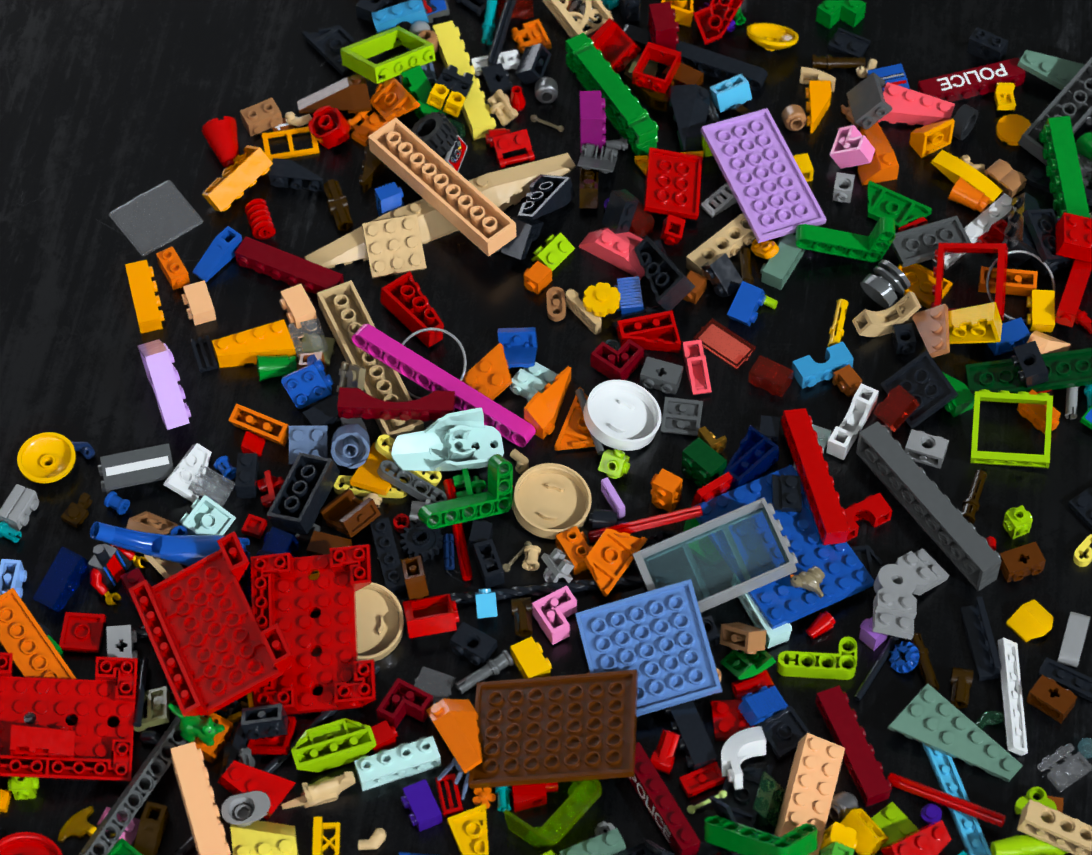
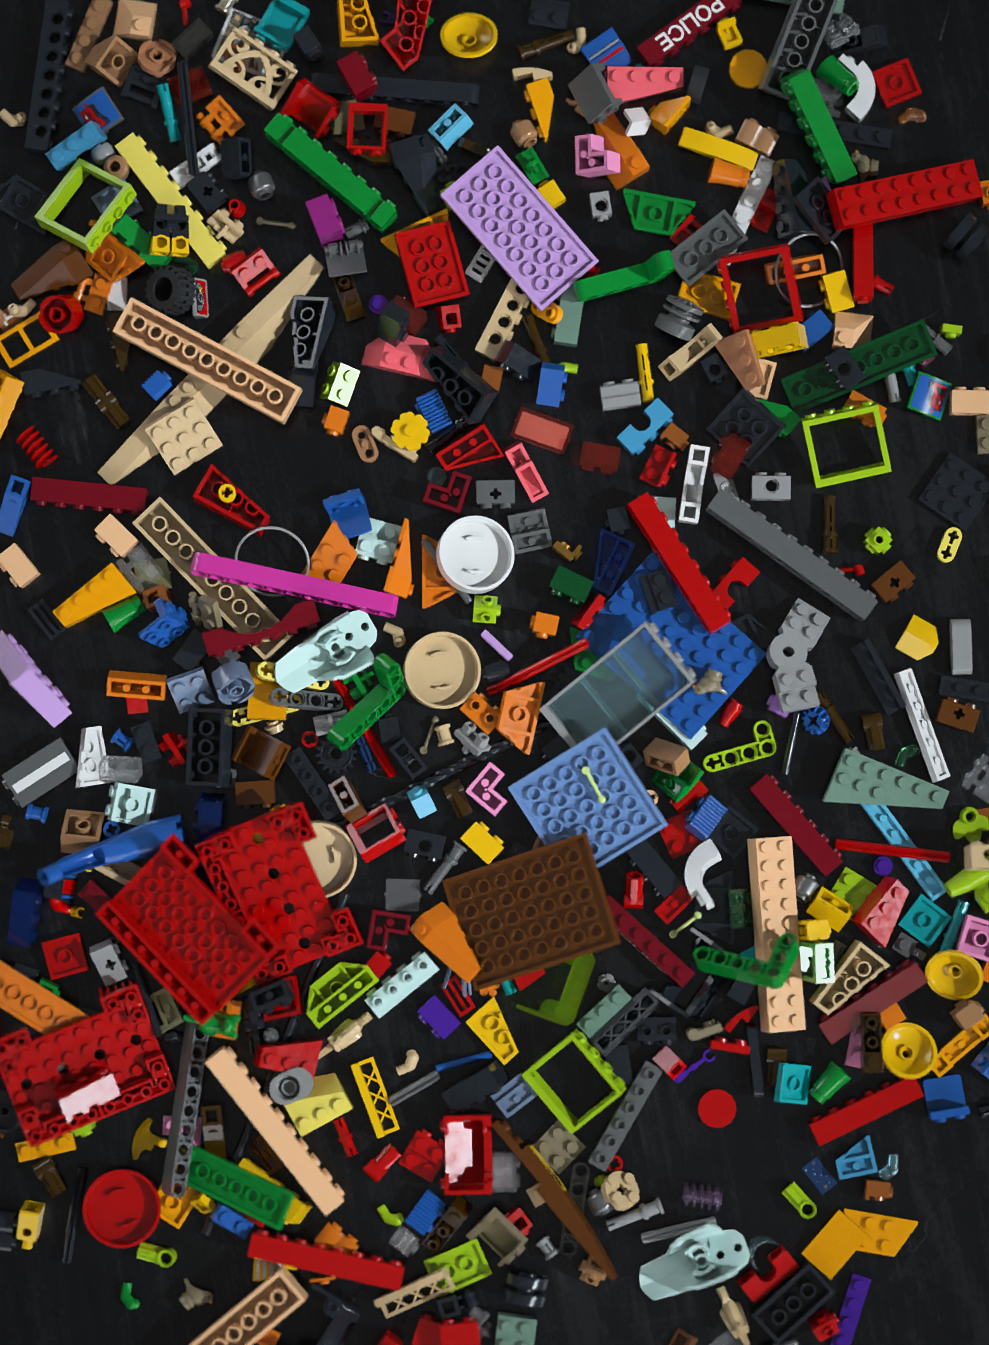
camera: 20 degrees left, 30 degrees up
(254, 526) = (175, 792): red plate -> none
(416, 297) = (231, 497): none -> yellow bush
(658, 614) = (585, 770): none -> yellowish green hinge
(793, 140) = (532, 166): none -> green hips
(808, 334) = (620, 395): none -> light grey brick
(824, 402) = (658, 466): none -> red bracket
(899, 134) = (638, 121): none -> white panel
(949, 361) = (768, 370): none -> light nougat plate

